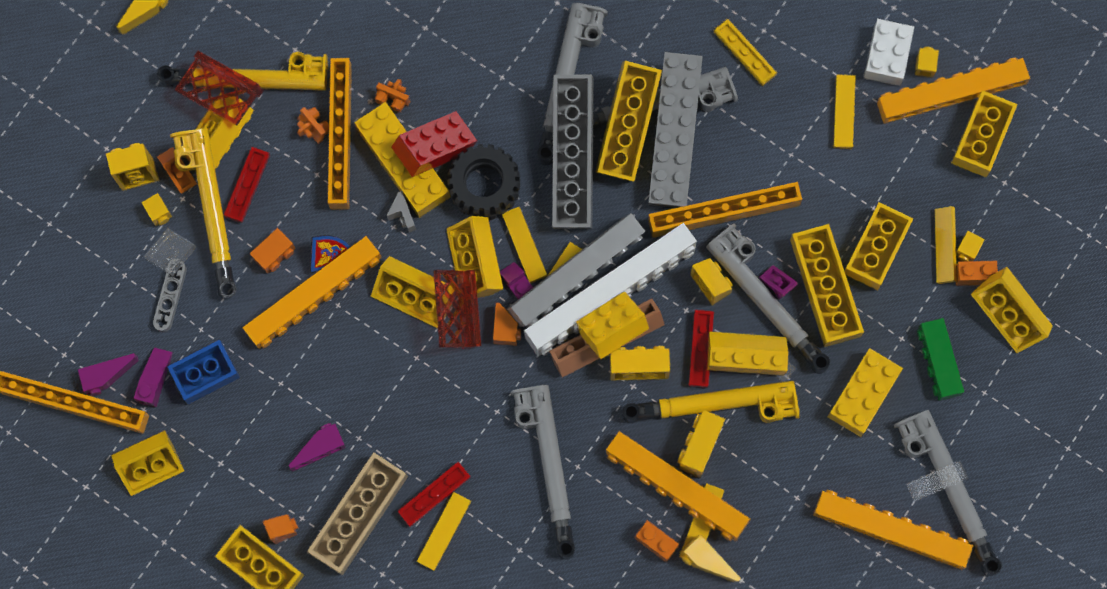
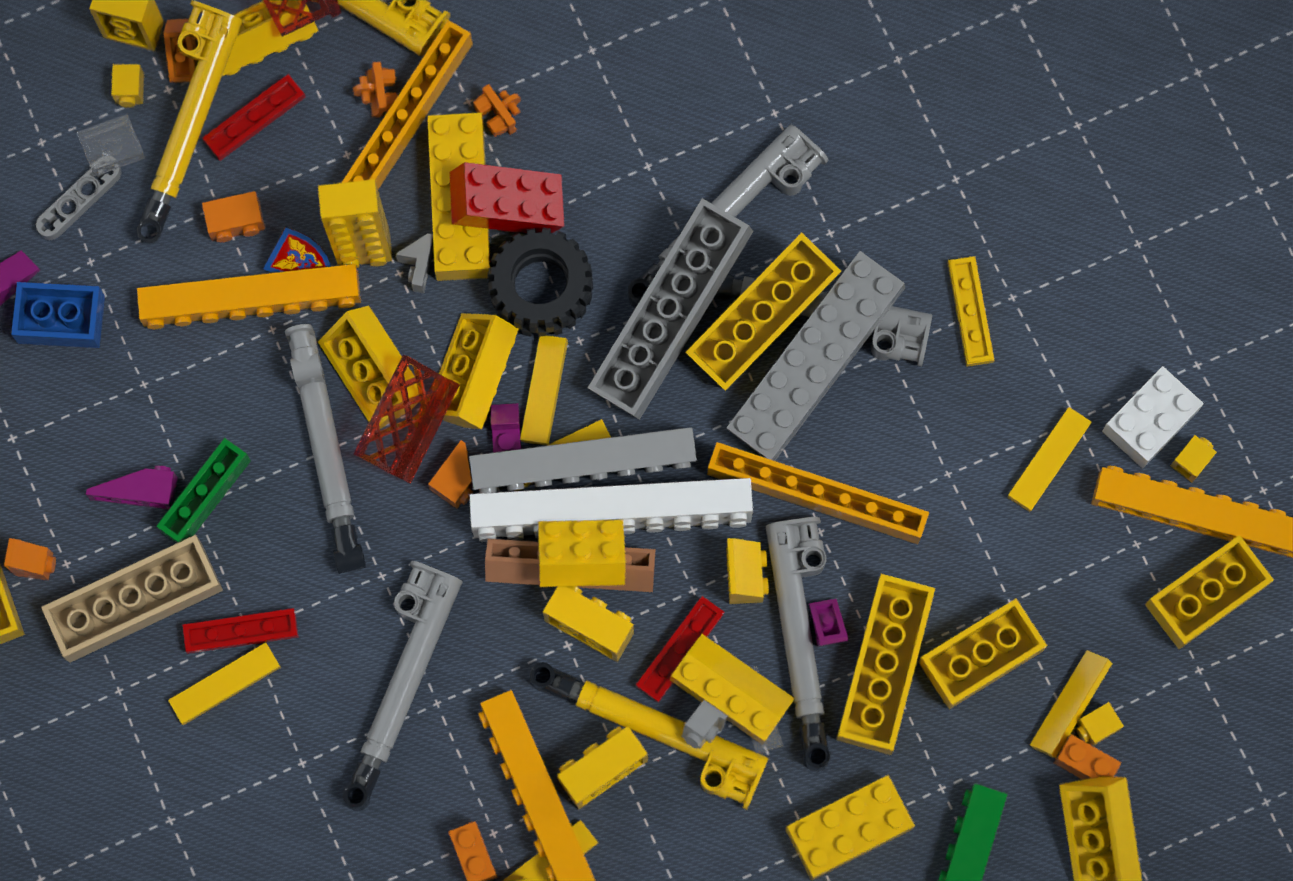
camera: 30 degrees right, 0 degrees up
(357, 208) = (355, 223): none -> yellow brick
(361, 425) = (204, 492): none -> green brick
(382, 320) = (325, 446): none -> light grey piece
(745, 383) = (703, 725): none -> light grey brick

